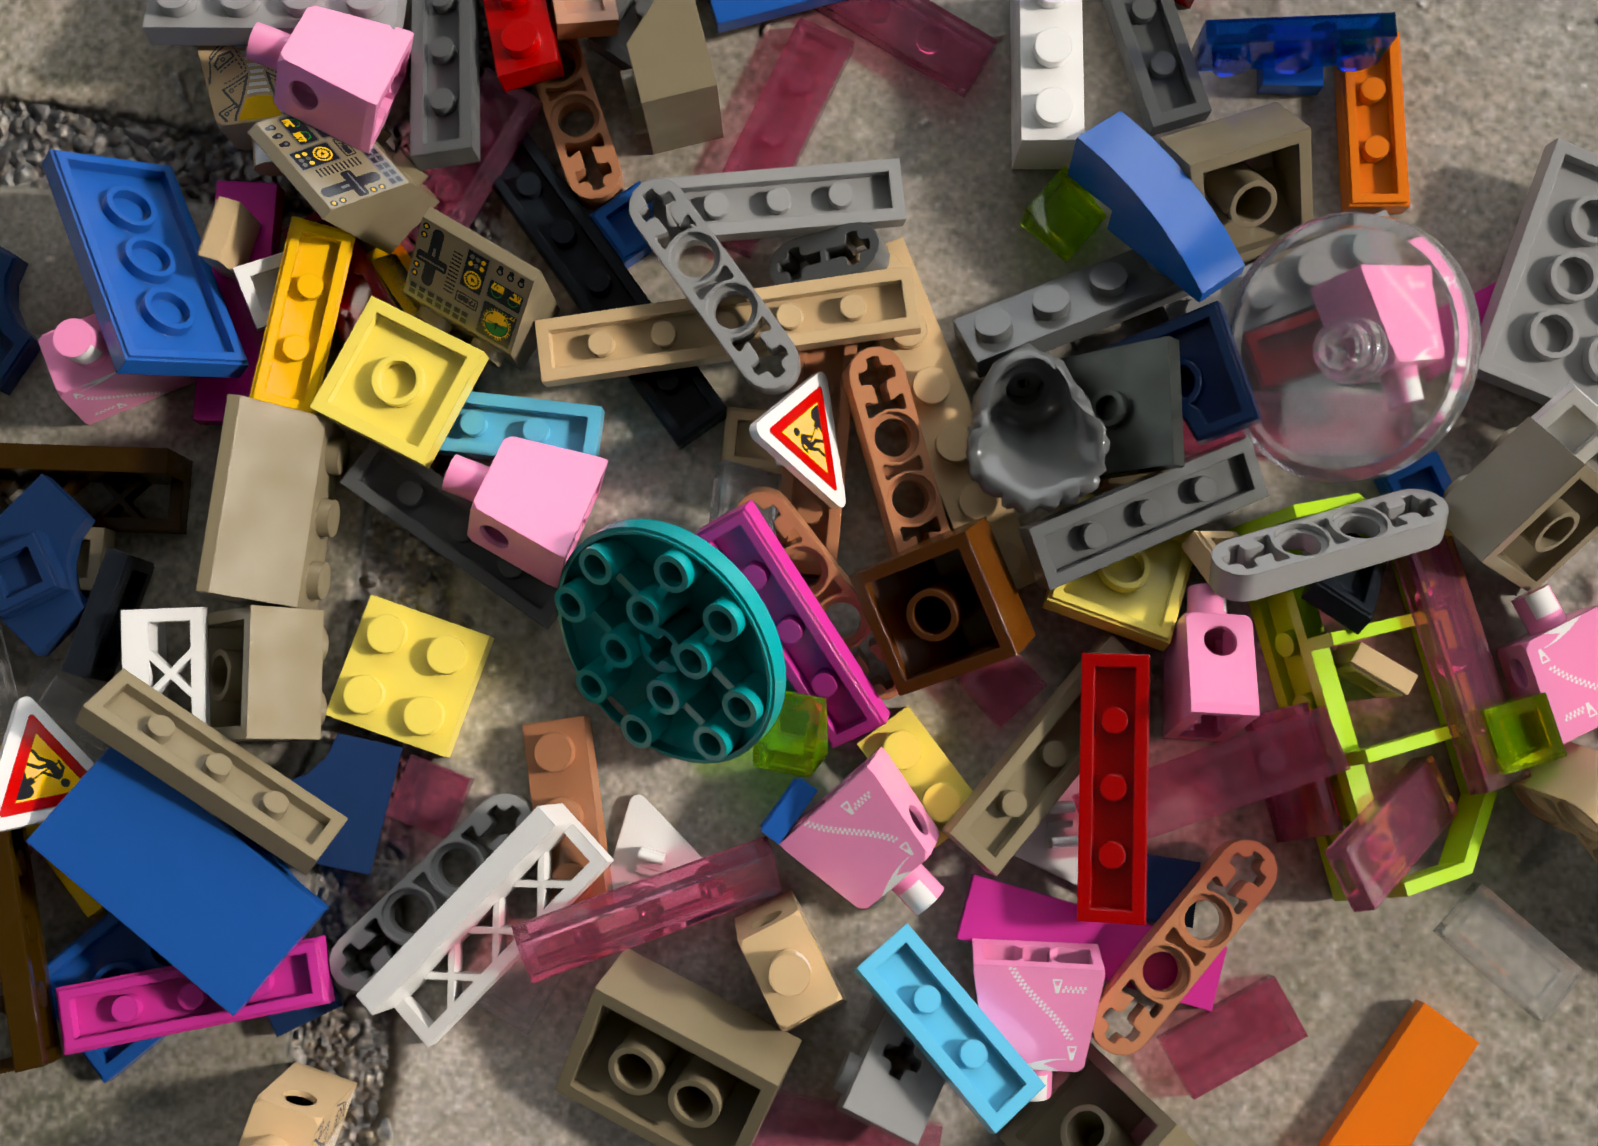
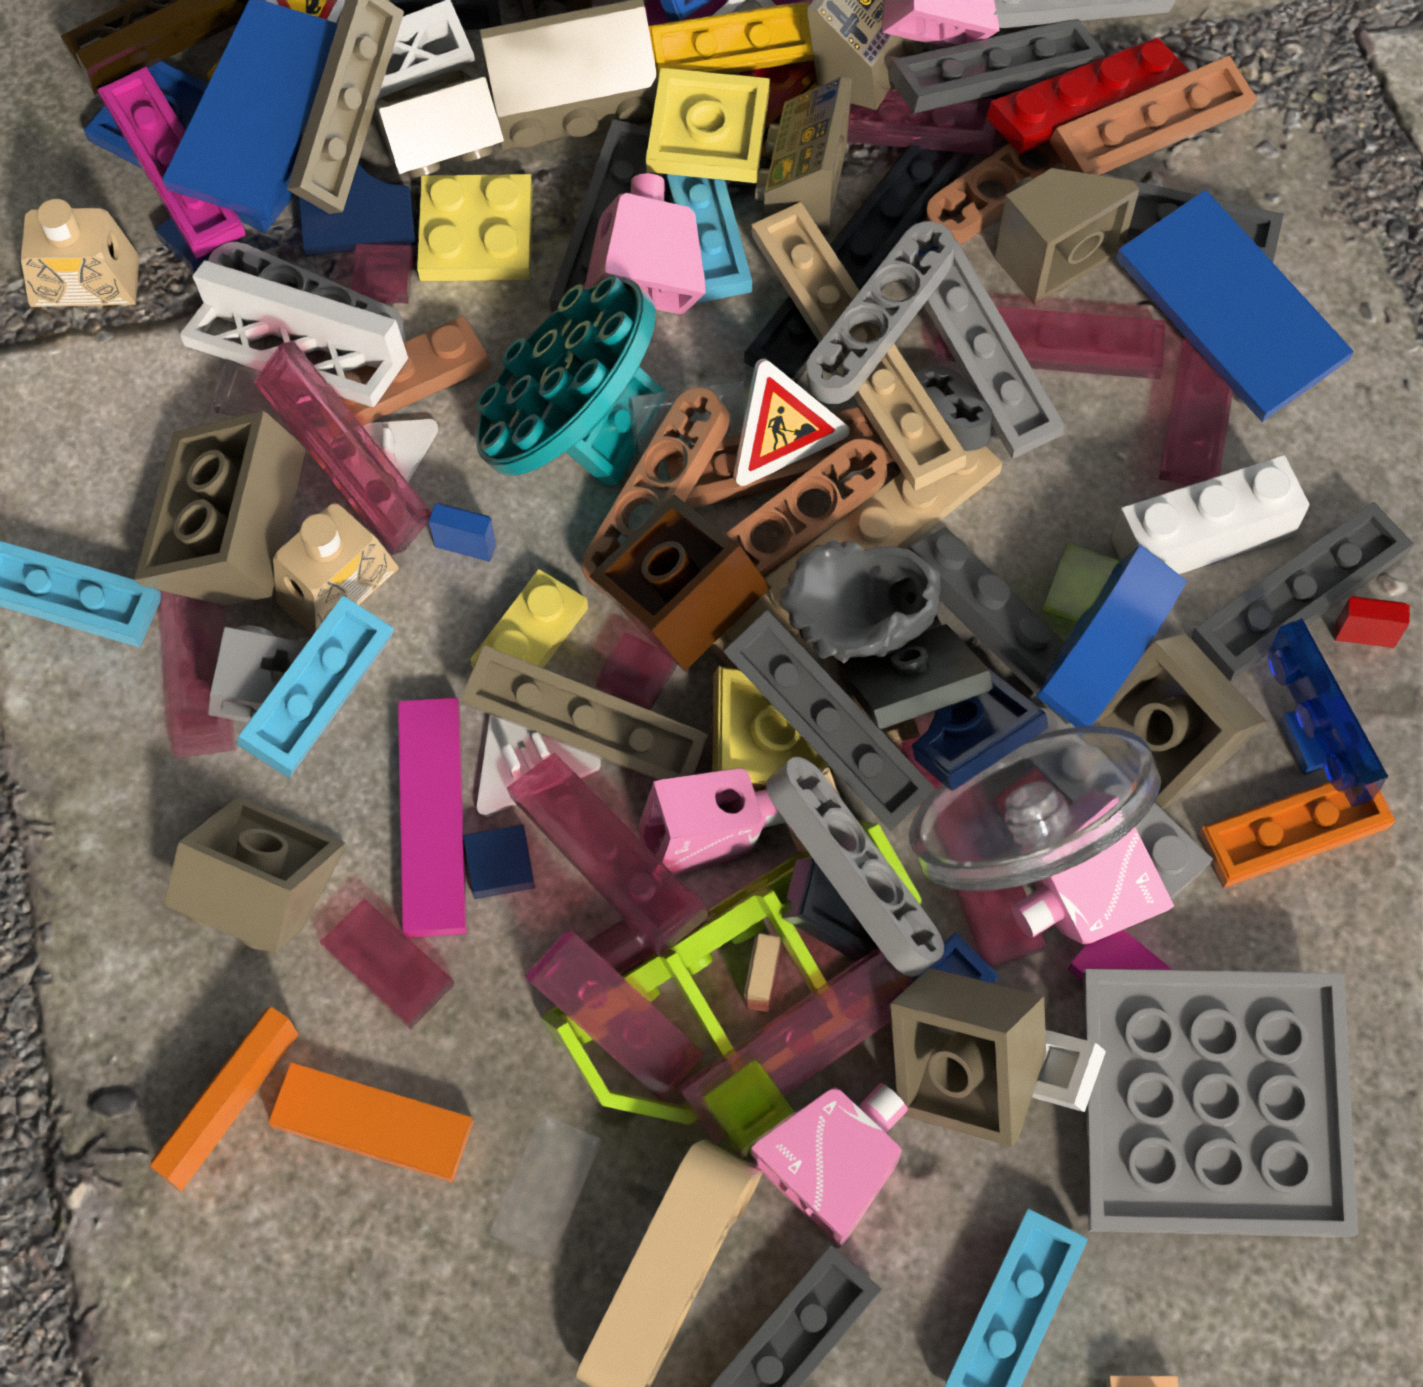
camera: 70 degrees right, 15 degrees down
(797, 738) = (528, 510): clear neon green slope -> none
(813, 650) = (618, 472): dark pink tile -> none
(869, 838) = (461, 593): bright pink torso -> none
(1041, 1000) = (358, 772): bright pink torso -> none
(1113, 788) = (570, 765): red plate -> none
(1191, 953) = (456, 870): nougat beam -> none

